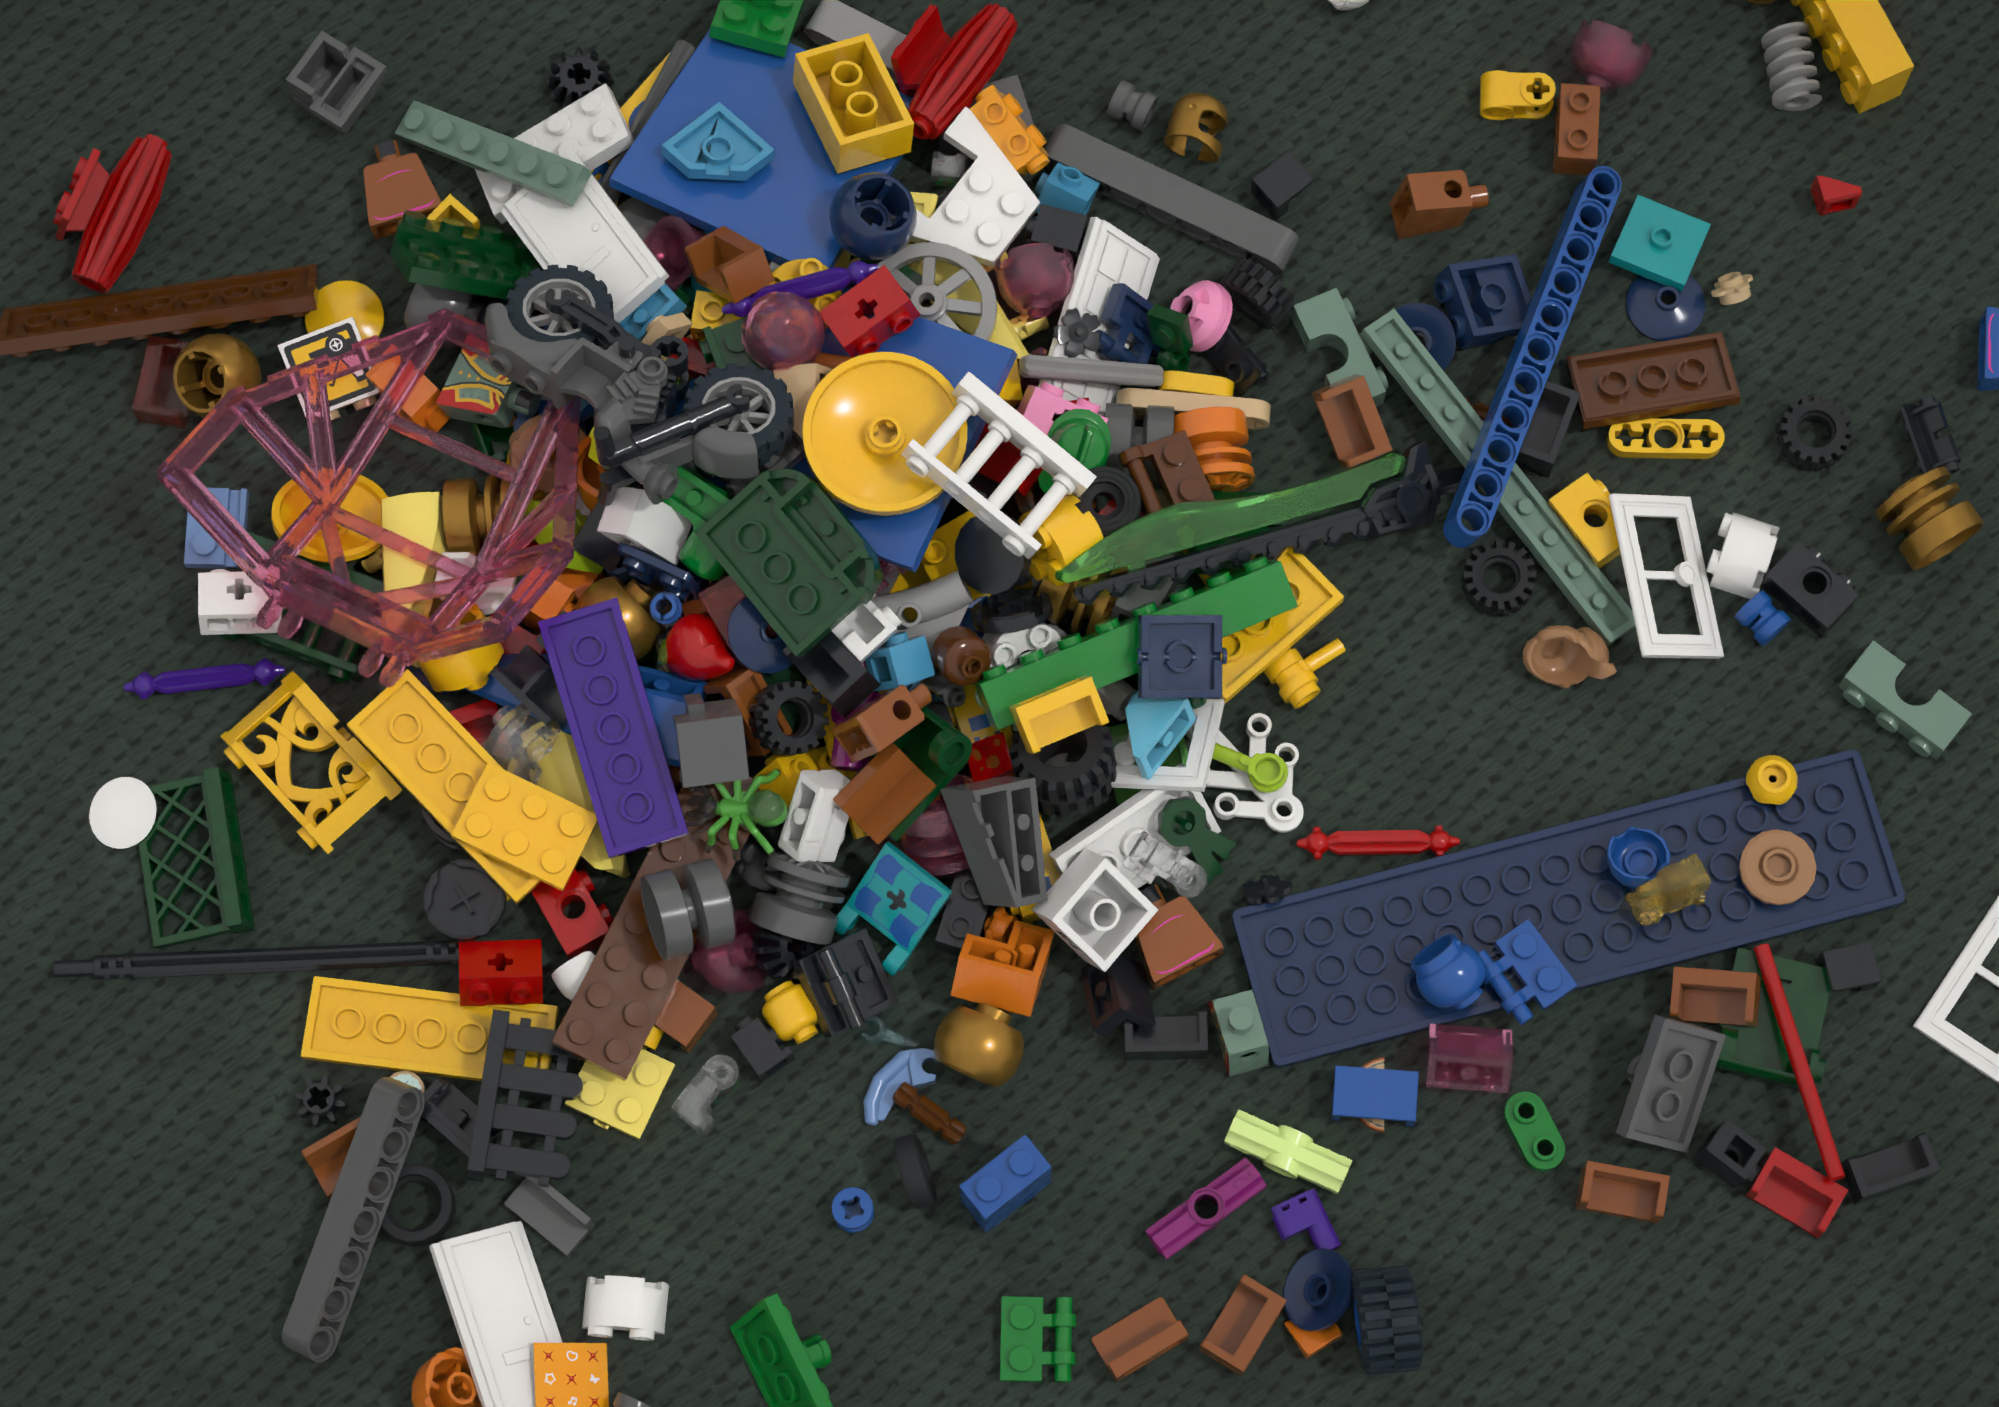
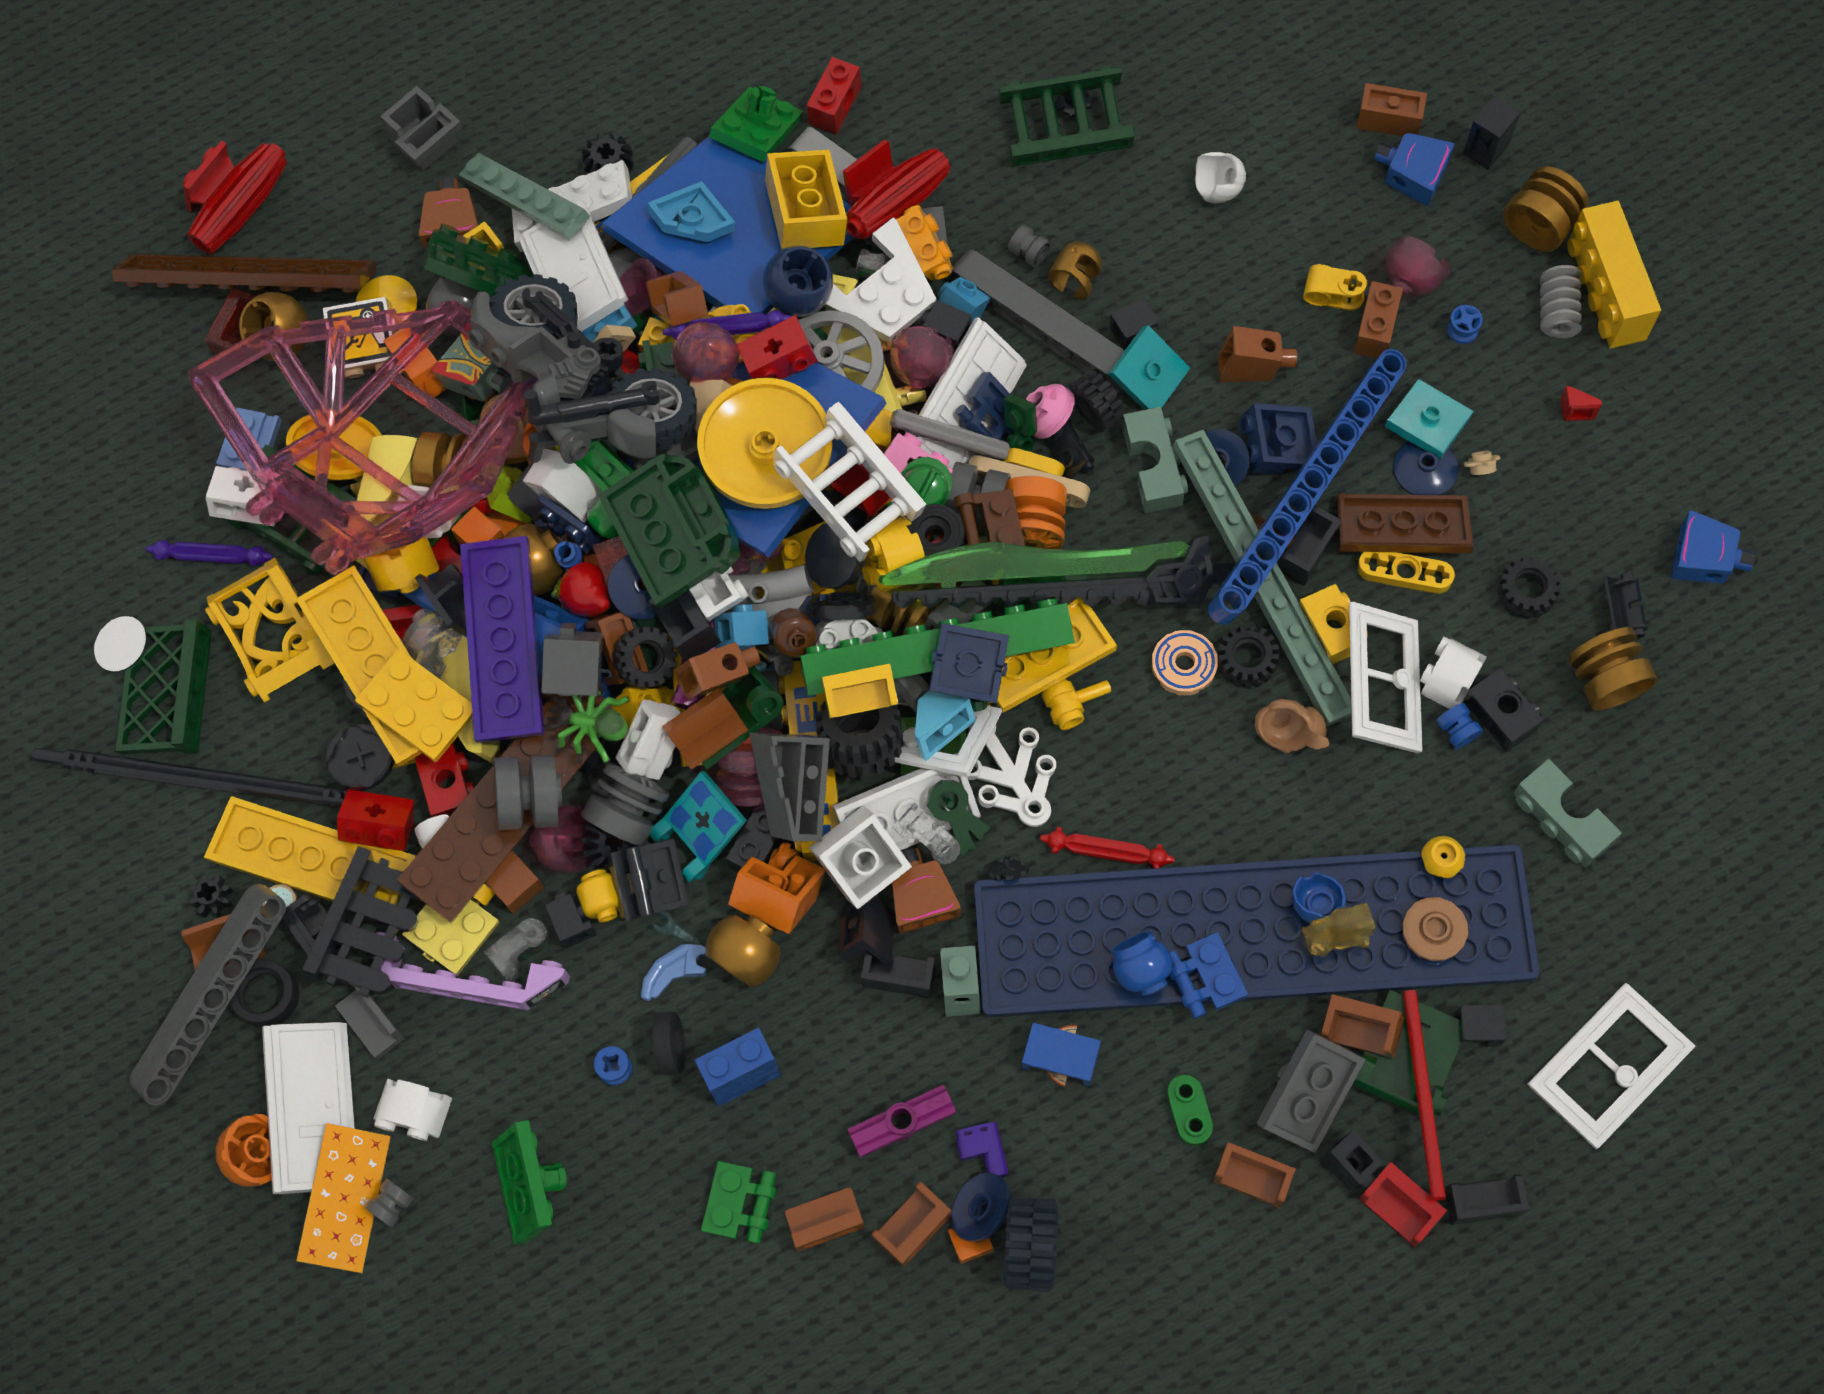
camera: 15 degrees right, 5 degrees down
(747, 1126) = (540, 984): none -> lavender slope
(929, 1113) = (693, 998): reddish brown axle -> none
(990, 758) = (801, 719): red slope -> none
(1077, 332) = (945, 402): black plant -> none
(1265, 771) = (1025, 773): lime plate -> none
(1288, 1151) = (980, 1087): yellowish green piece -> none
(1312, 242) = (1149, 369): none -> teal plate
(1352, 421) = (1151, 509): dark orange panel -> none
(1429, 576) = (1184, 644): none -> light nougat tile
(1469, 1058) = (1145, 1038): clear pink brick -> none
(1681, 106) = (1466, 316): none -> blue wheel

